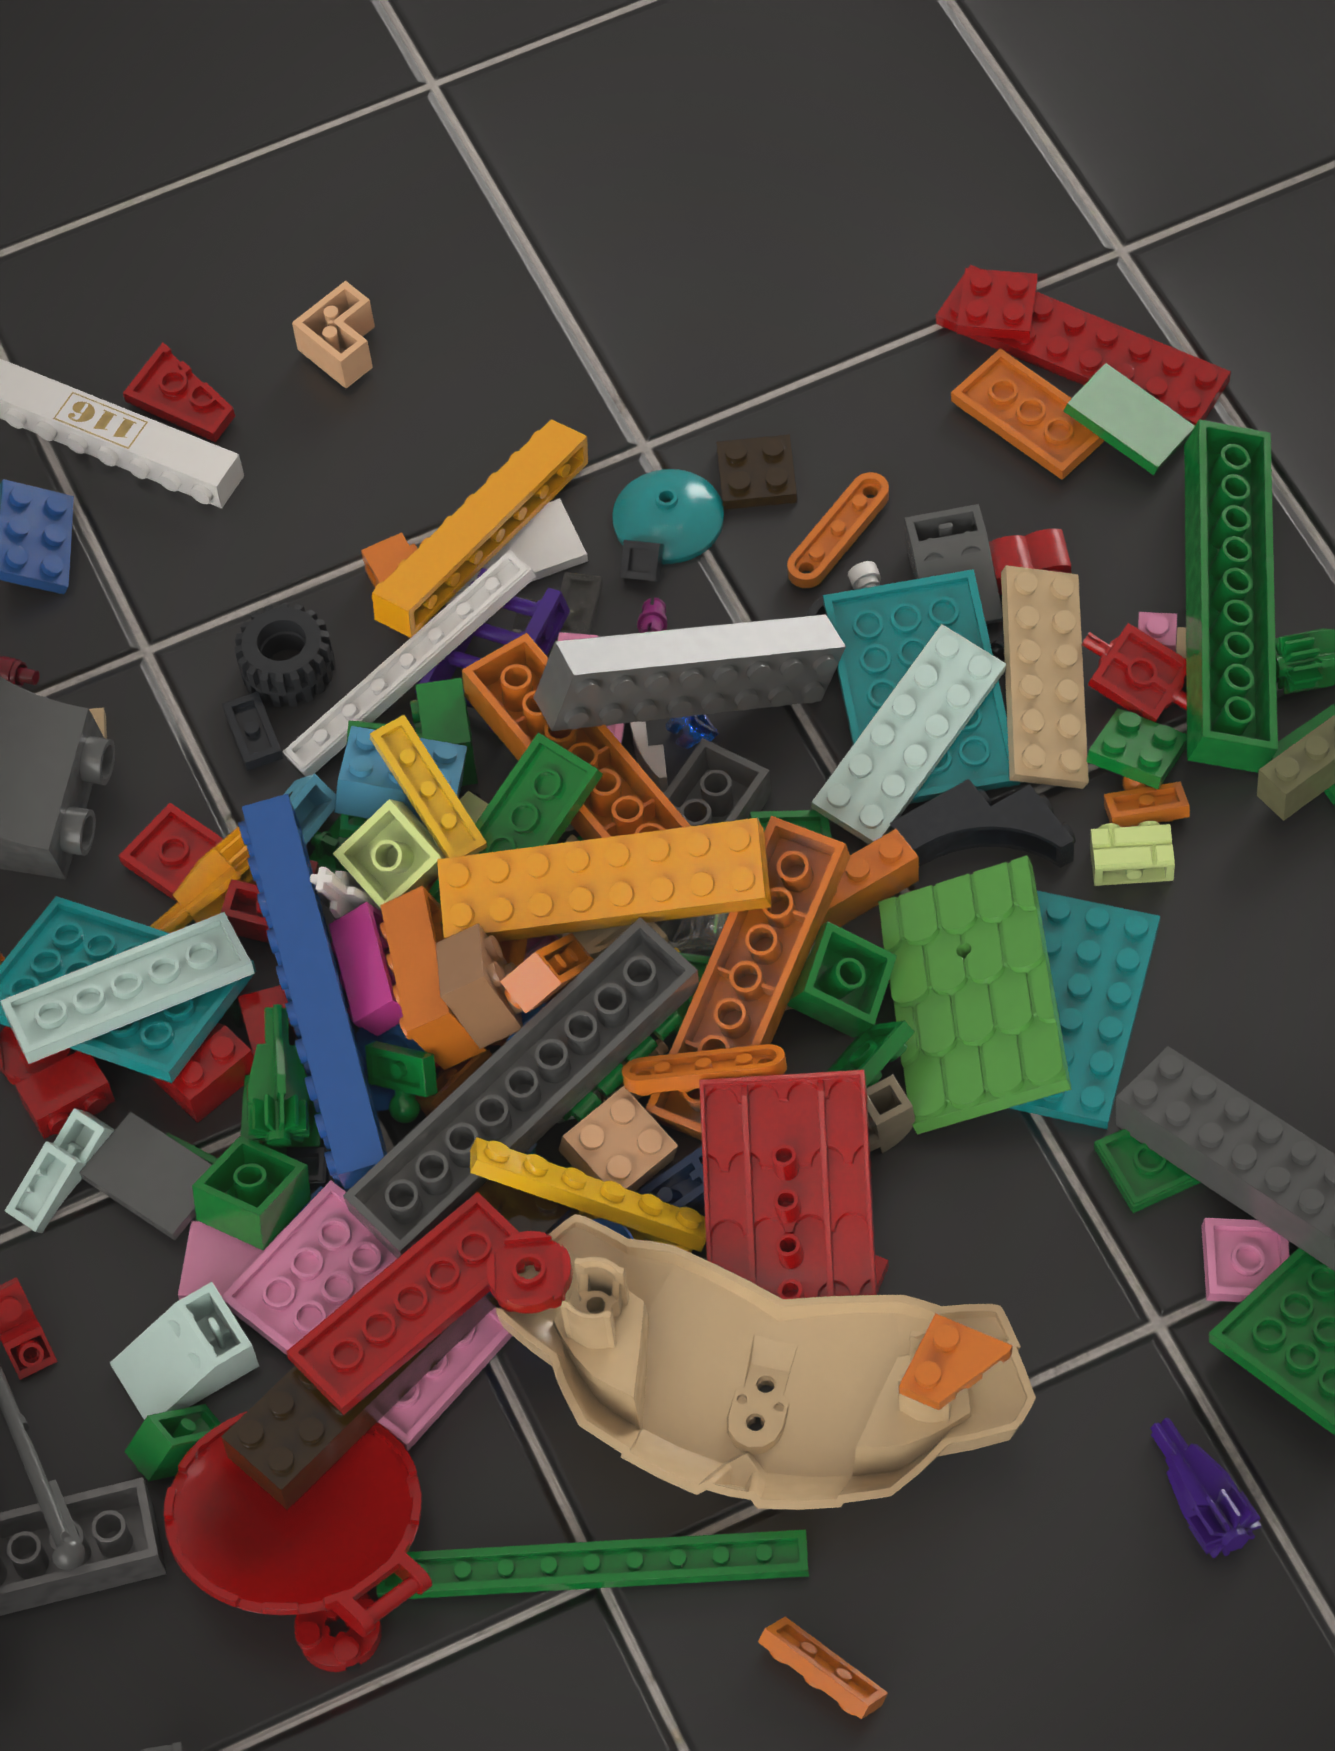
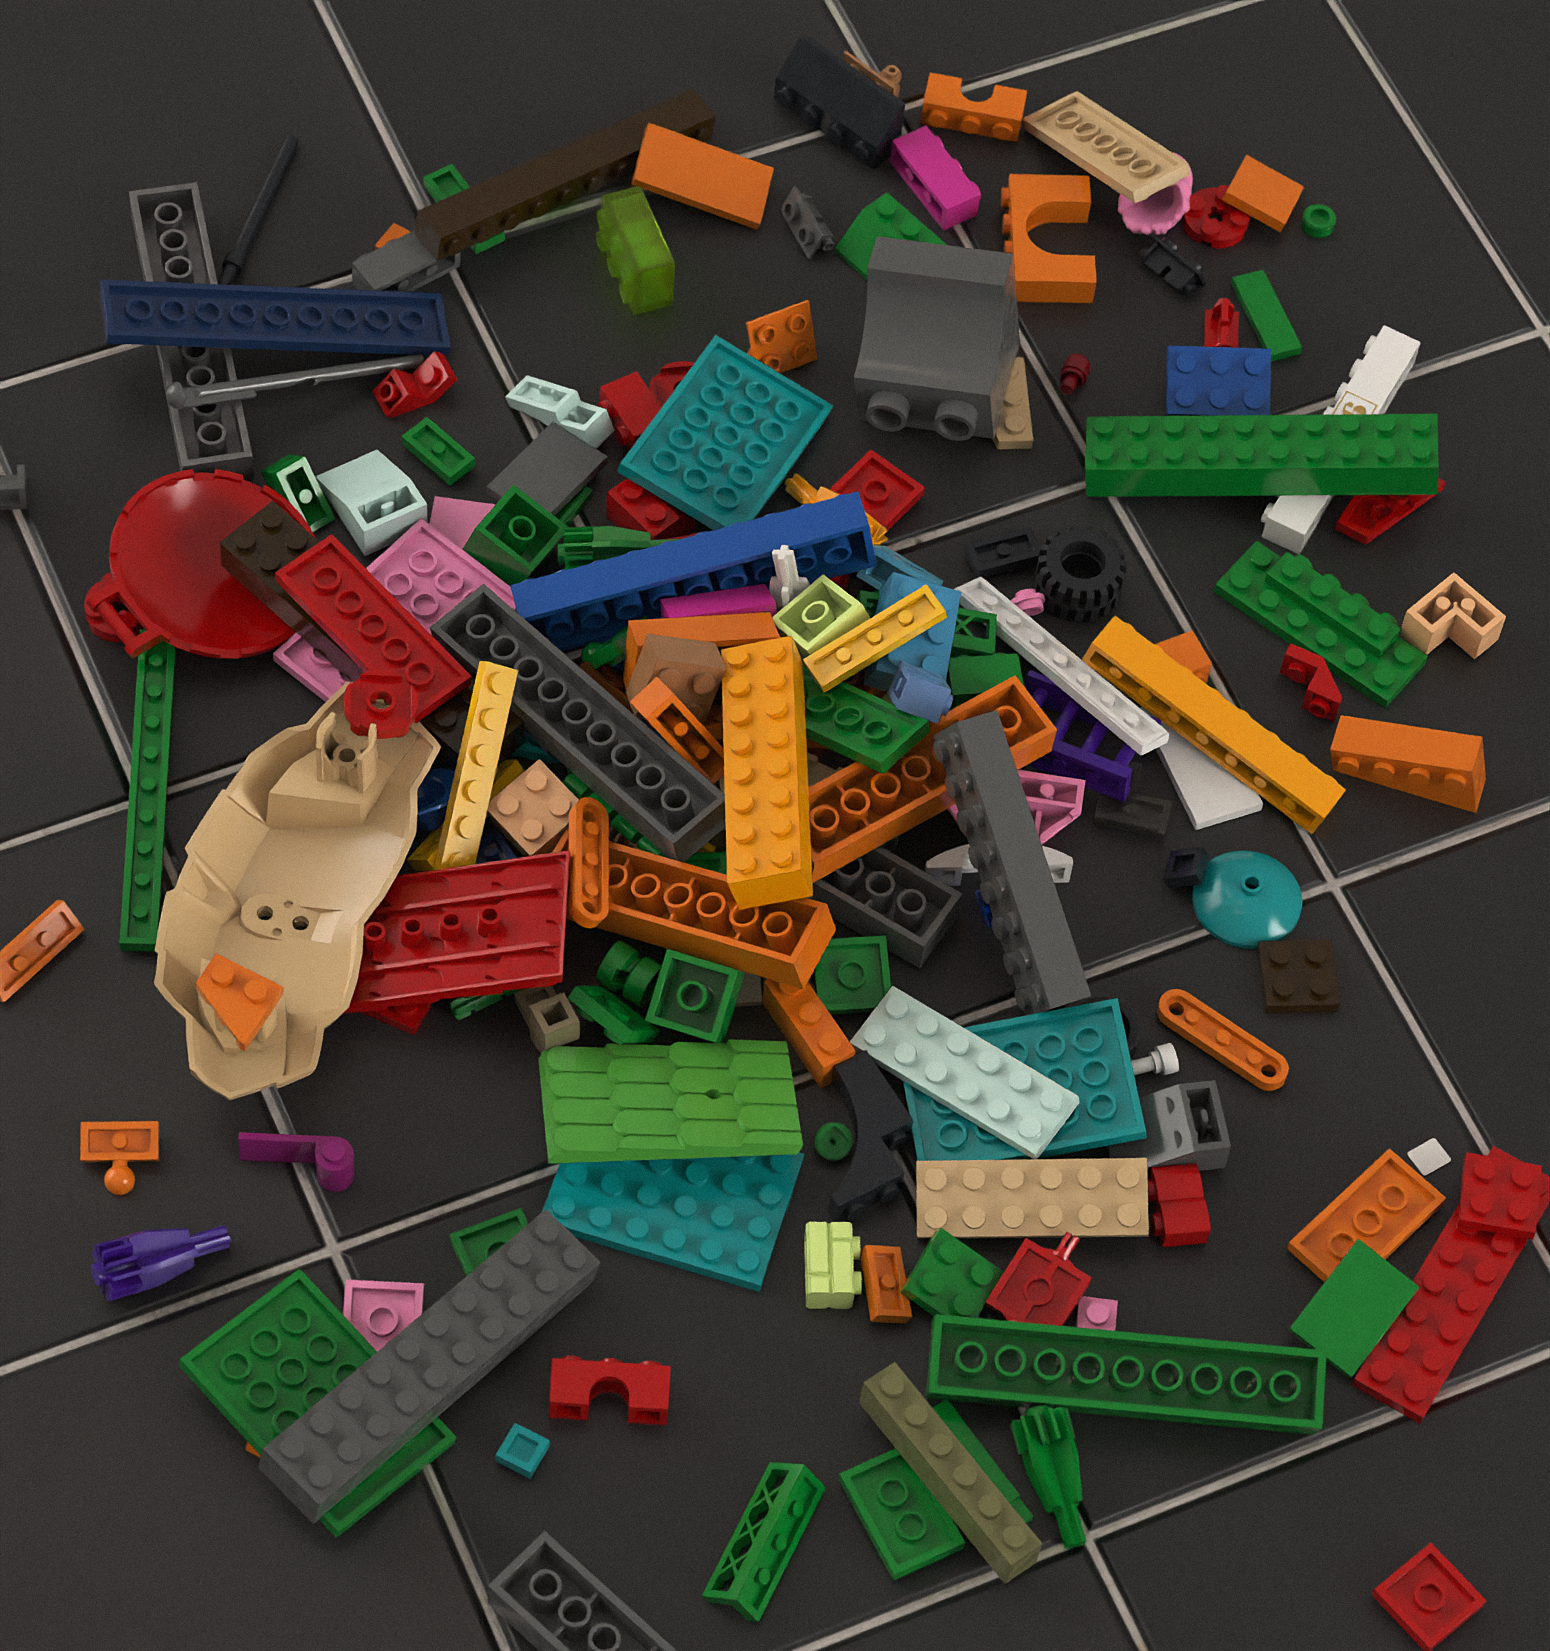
camera: 80 degrees right, 0 degrees up
(113, 1296) = (438, 451): none -> green plate
(126, 987) = (711, 435): light aqua plate -> none
(145, 487) = (1262, 455): none -> green brick
(317, 703) = (1029, 601): none -> bright pink plate
(331, 453) = (1323, 619): none -> green plate
(419, 448) = (1322, 694): none -> red slope
(491, 751) = (920, 692): none -> medium blue brick
(507, 369) = (1412, 760): none -> orange wedge
(652, 616) = (1105, 867): magenta pin -> none
(812, 1044) = (627, 972): none -> green wheel
(946, 370) = (1429, 1156): none -> white sticker
(984, 855) = (833, 1141): none -> green tile
(1063, 1546) = (119, 1144): none -> orange plate
(1066, 1330) = (331, 1154): none -> magenta door
(1298, 1073) = (579, 1381): none -> red arch

